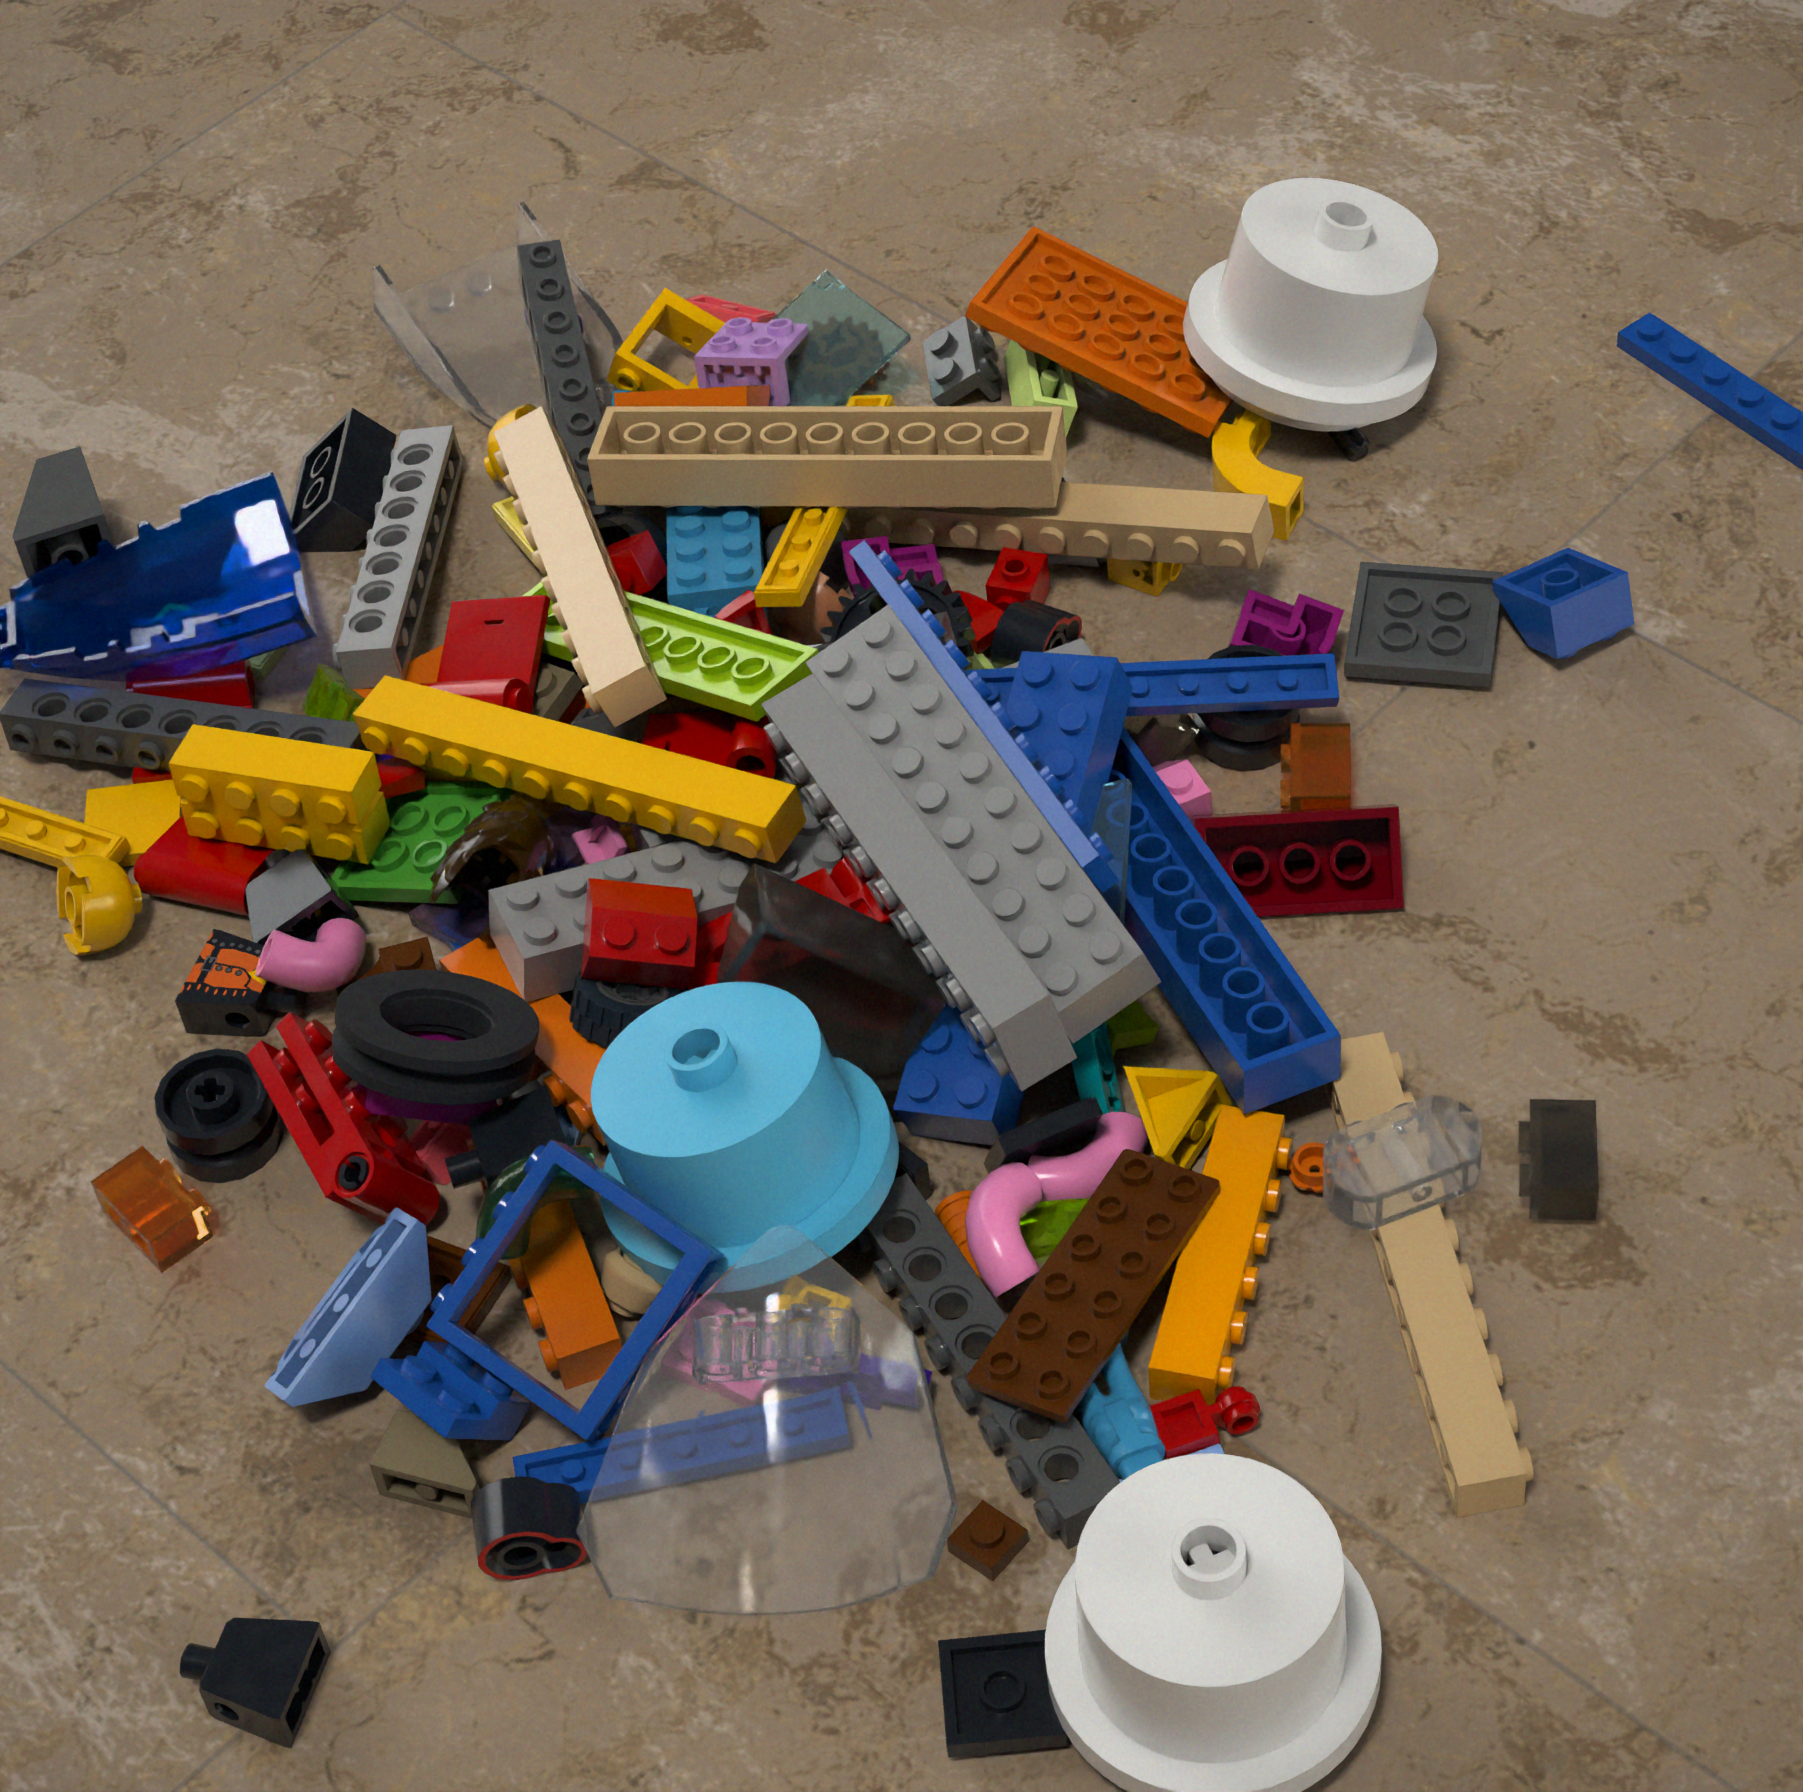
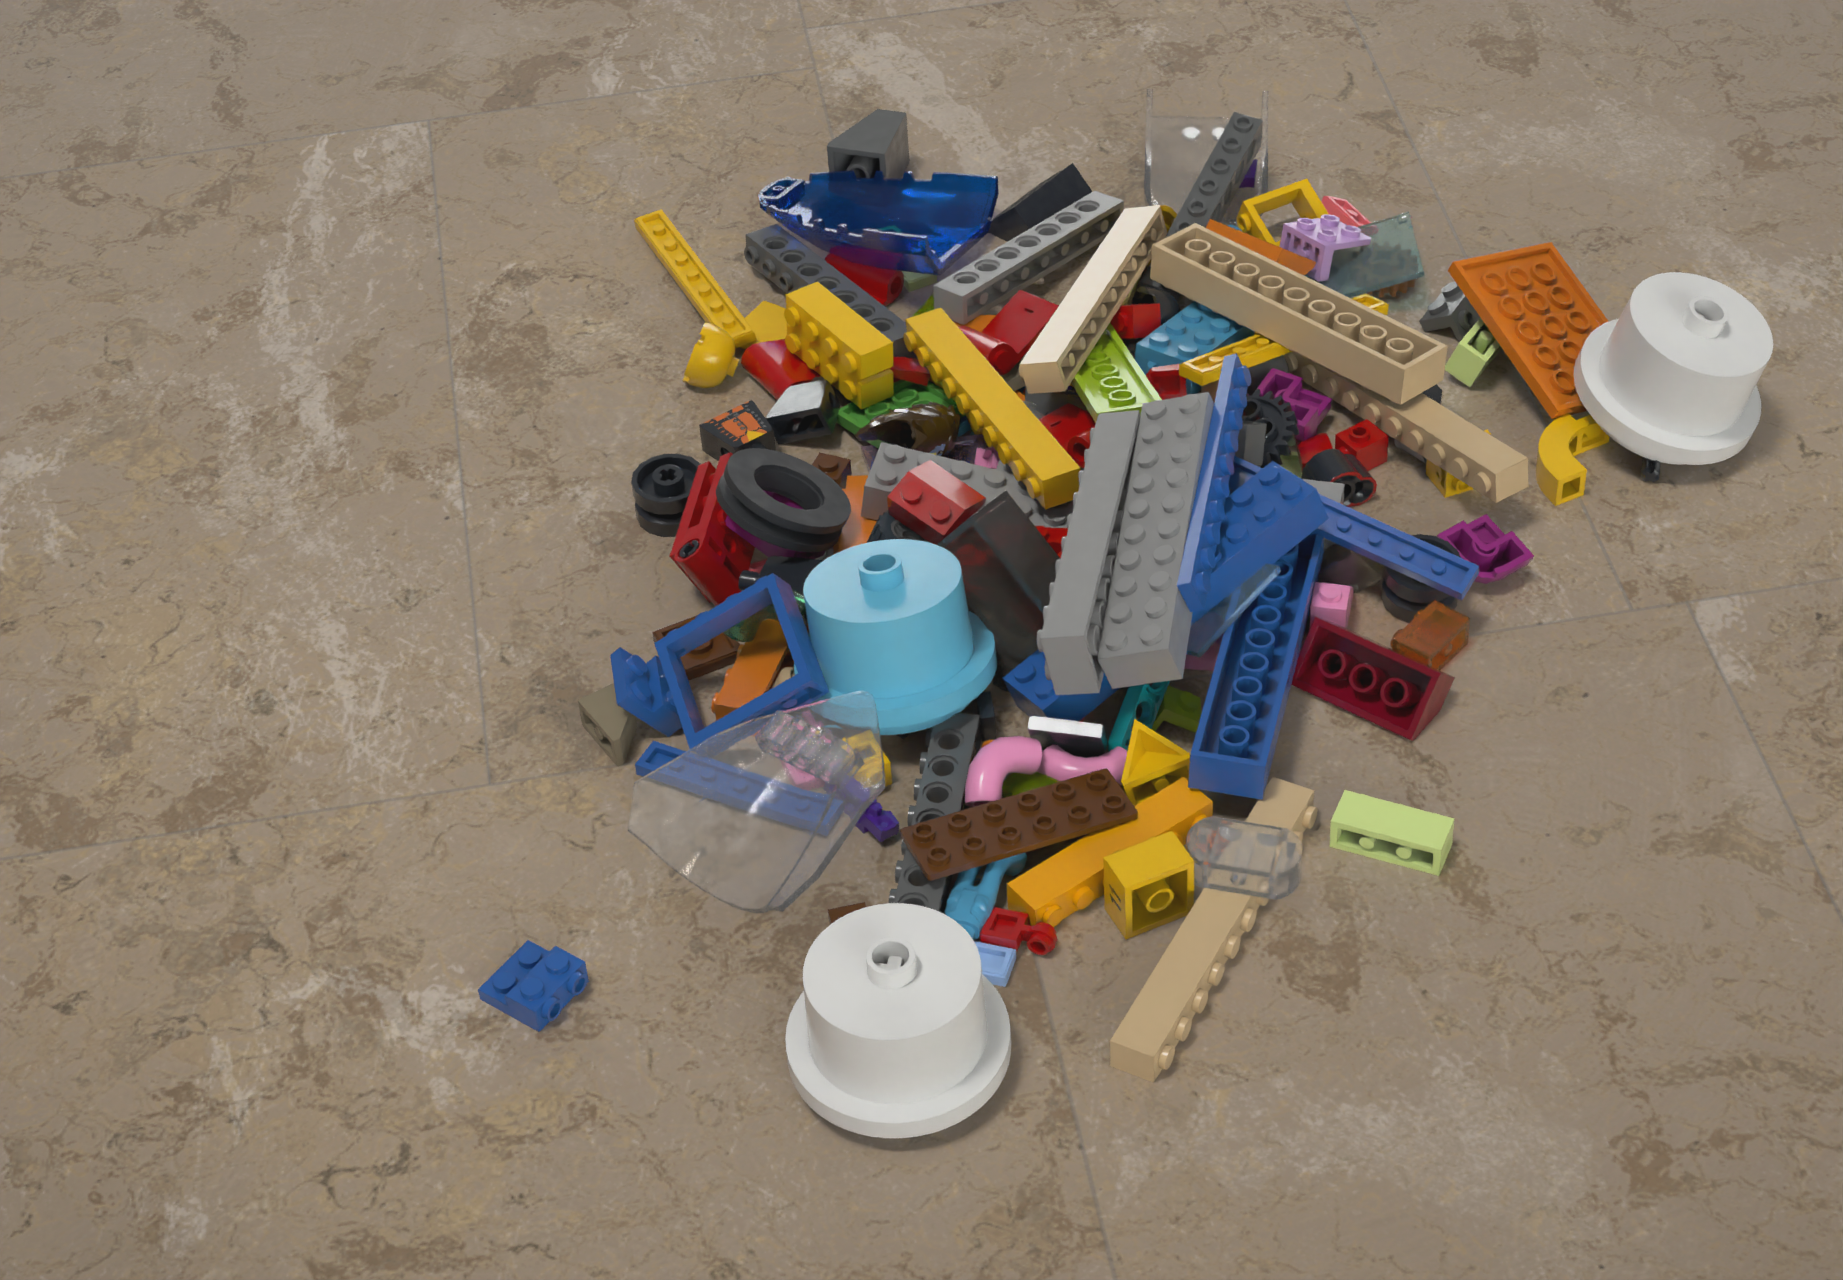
camera: 35 degrees right, 5 degrees down
(153, 1208) = (599, 523): clear orange brick -> none
(260, 1674) = (444, 771): black torso -> none
(314, 965) = (769, 434): bright pink cylinder -> none
(359, 1317) = (637, 627): medium blue wedge -> none
(526, 1528) = (616, 771): black piece -> none
(997, 1694) = (768, 996): black plate -> none
(1311, 1262) = (1148, 884): none -> yellow brick
(1423, 624) = (1584, 592): dark grey plate -> none
(1501, 1031) = (1391, 832): none -> yellowish green brick
(1561, 1159) = (1350, 916): clear smoke brick -> none
(1566, 602) = (1680, 623): blue slope -> none

